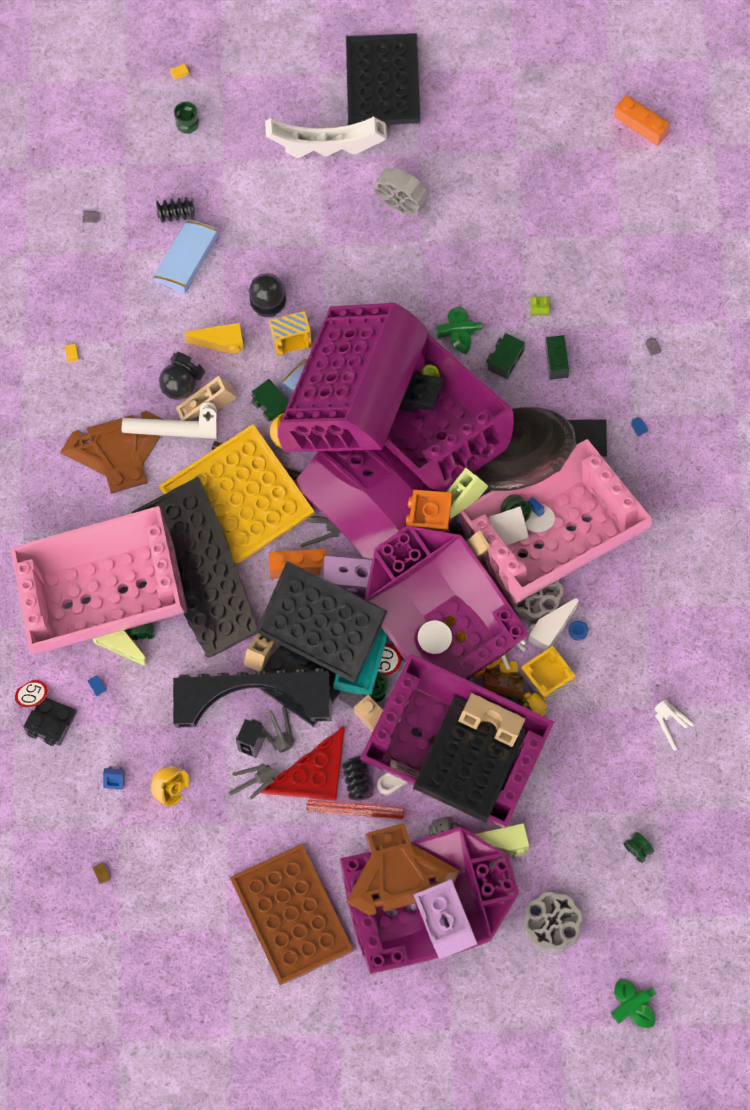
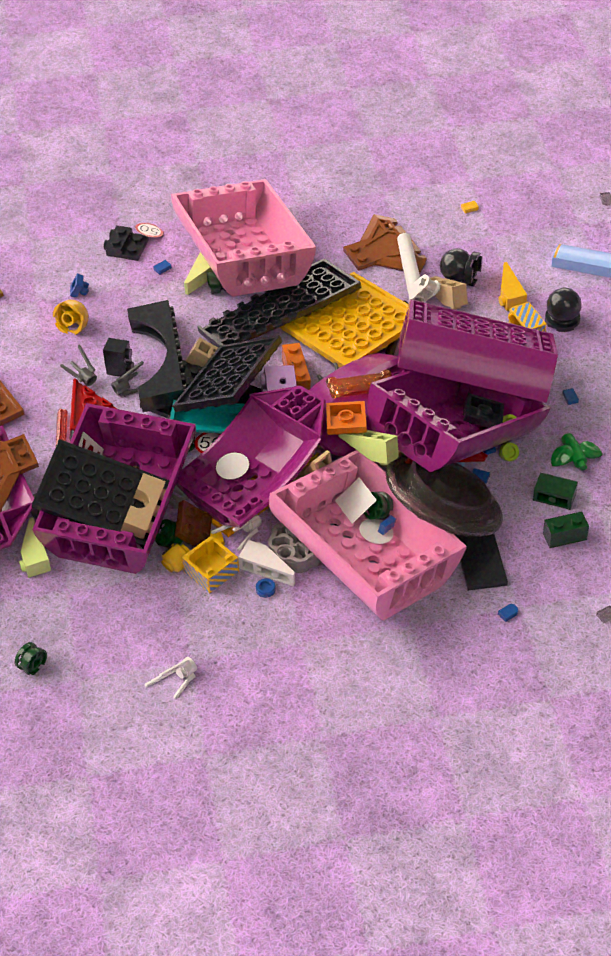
camera: 80 degrees right, 20 degrees down
(377, 492) = (354, 385): none -> clear orange plate

